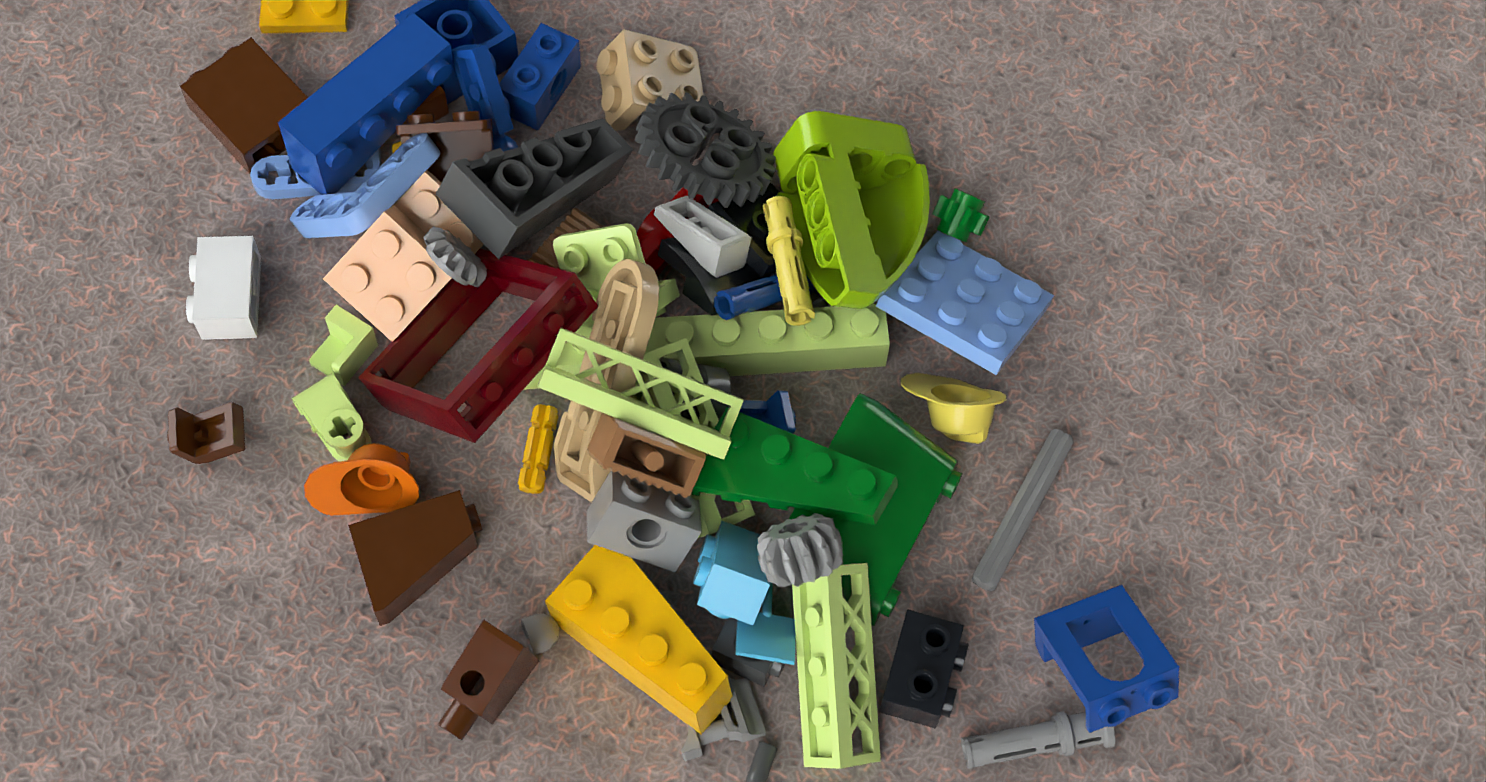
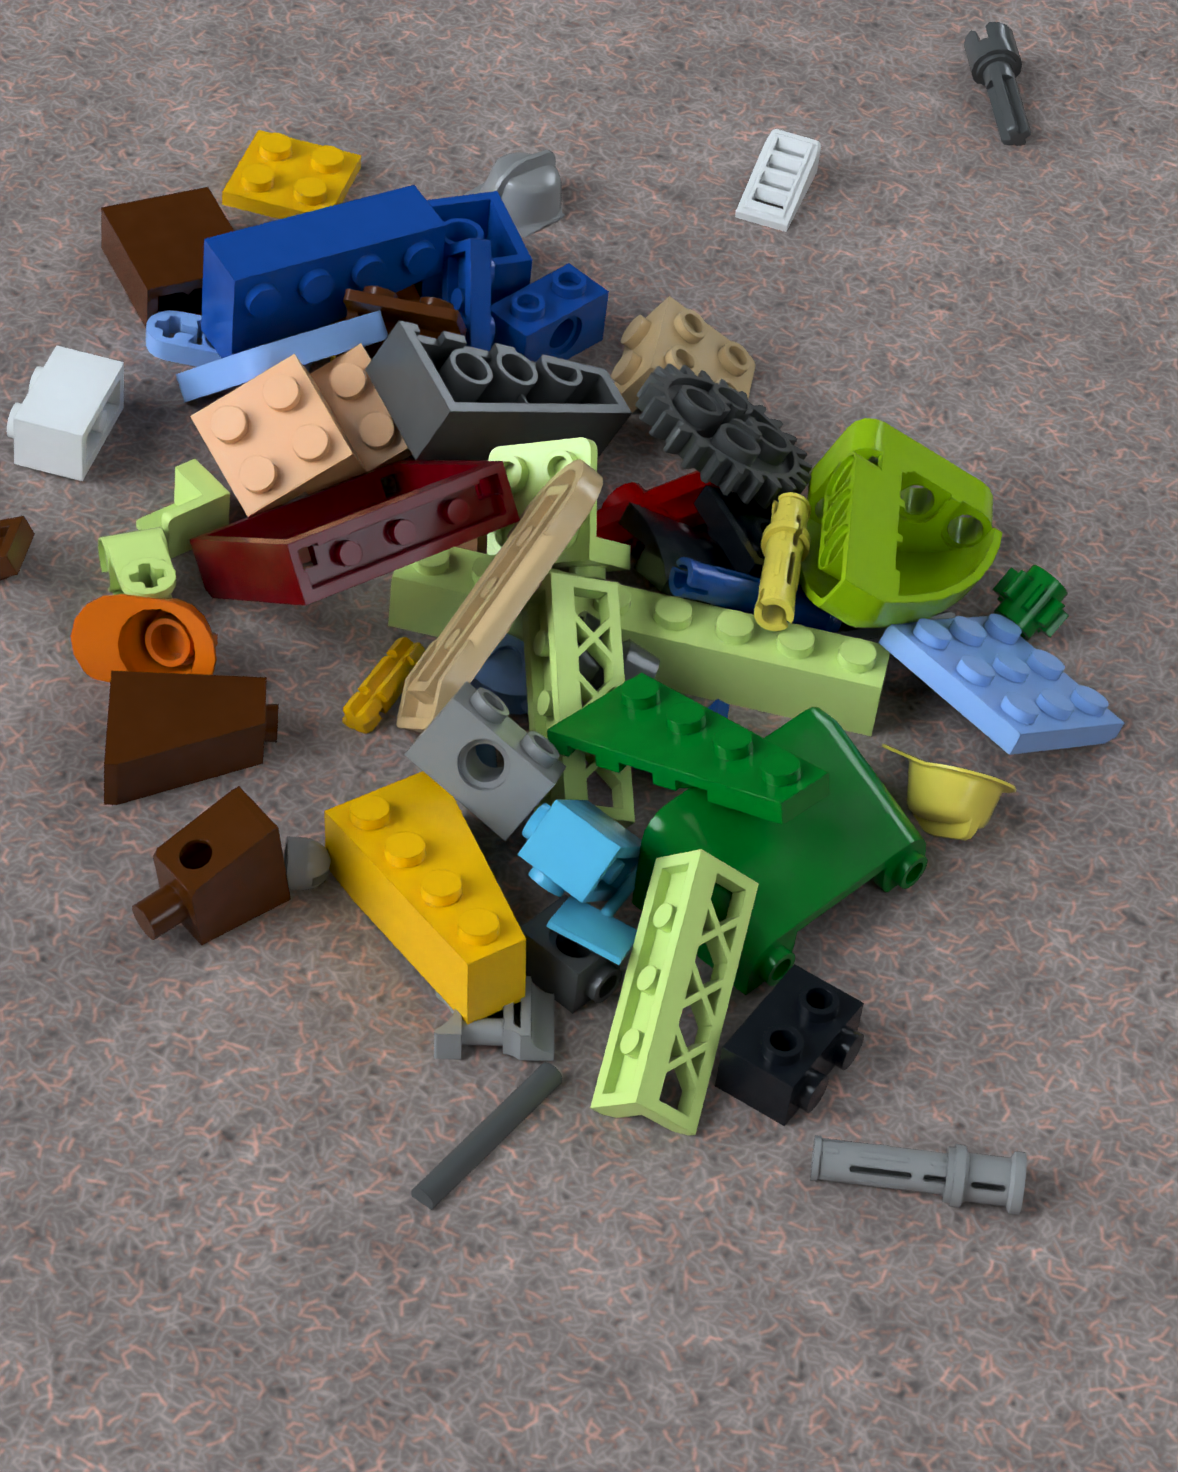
camera: 15 degrees right, 20 degrees down
(454, 257) = (362, 436): light grey gear -> none
(633, 410) = (518, 607): yellowish green fence -> none
(645, 456) = (517, 665): medium nougat brick -> none
(705, 235) = (688, 515): white slope -> none
(800, 550) = (672, 814): light grey gear -> none
(1022, 510) = (994, 930): light grey axle -> none
(1107, 702) = (1033, 1089): blue panel -> none

